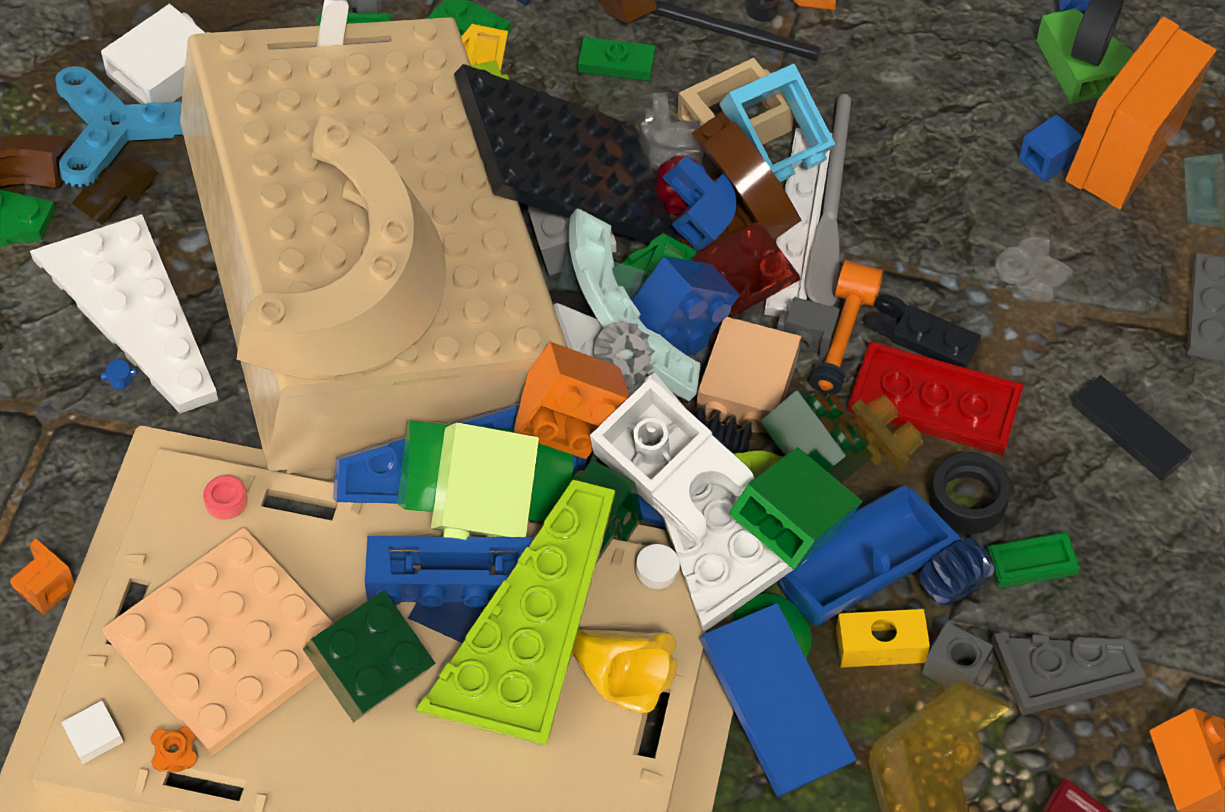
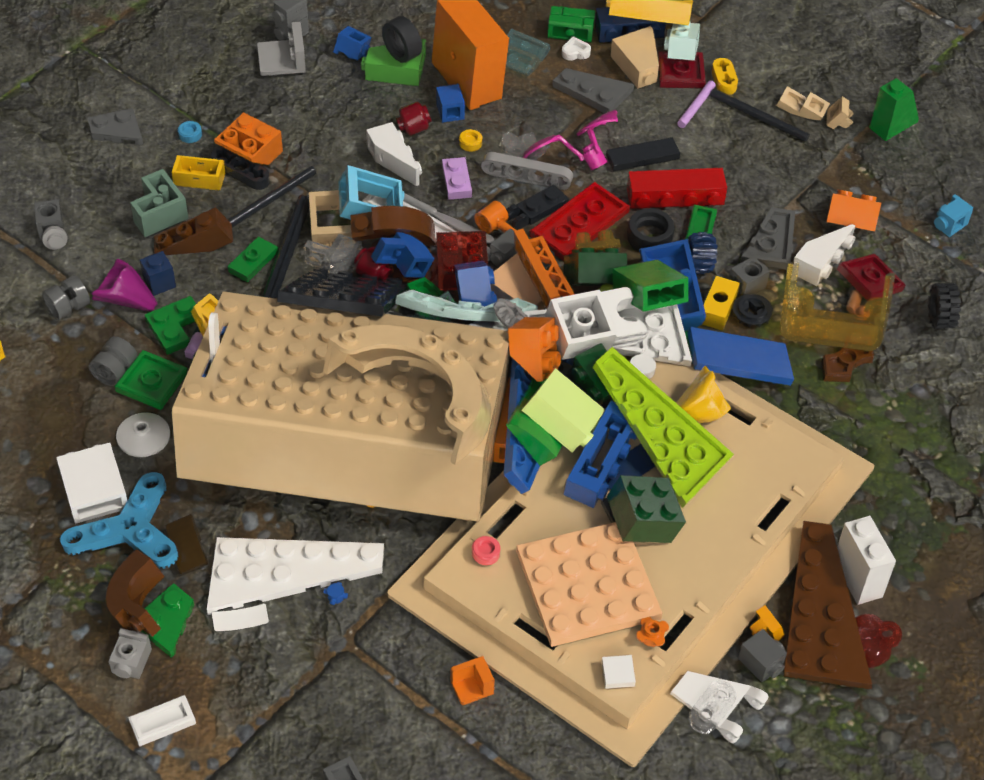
camera: 65 degrees left, 5 degrees down
(39, 292) = (240, 618): none -> white sticker
(643, 87) = (287, 247): none -> black axle
(755, 366) = (539, 275): none -> orange fence
(898, 673) = (757, 304): none -> black gear
(912, 113) = (390, 151): none -> white slope
(916, 217) = (456, 178): none -> lavender plate
(984, 292) = (527, 167): none -> light grey beam
(987, 119) = (413, 118): none -> dark red head
(1003, 204) = (470, 140): none -> yellow tile
(1071, 355) = (592, 152): none -> dark pink plant
(1074, 748) = (820, 254): none -> white slope
(1082, 495) = (676, 188): none -> red brick

